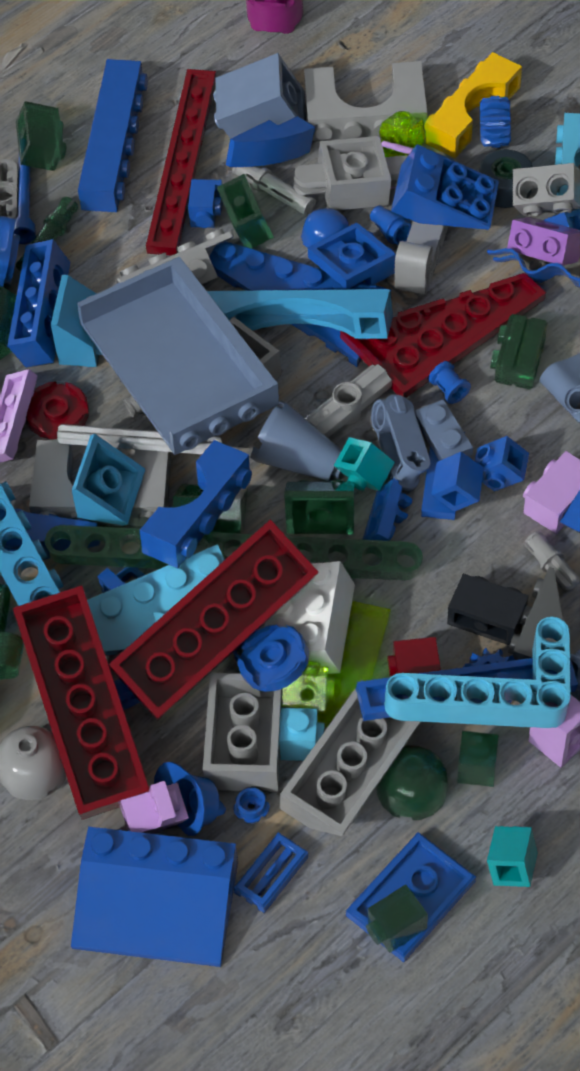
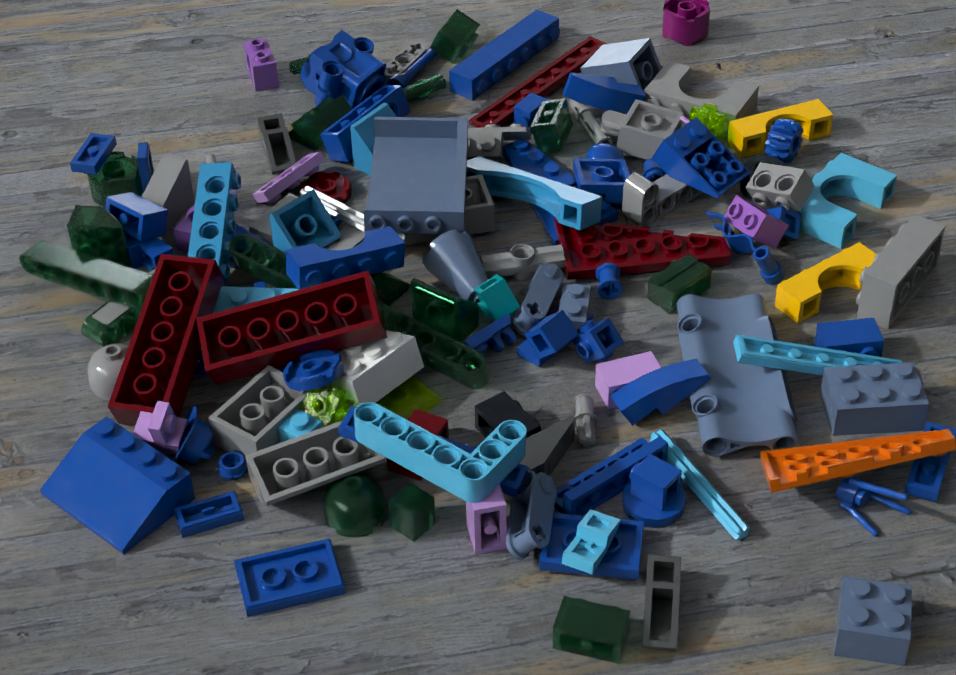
camera: 30 degrees right, 15 degrees down
(396, 919) = (256, 576): clear green brick -> none
(512, 848) = (377, 582): teal brick -> none

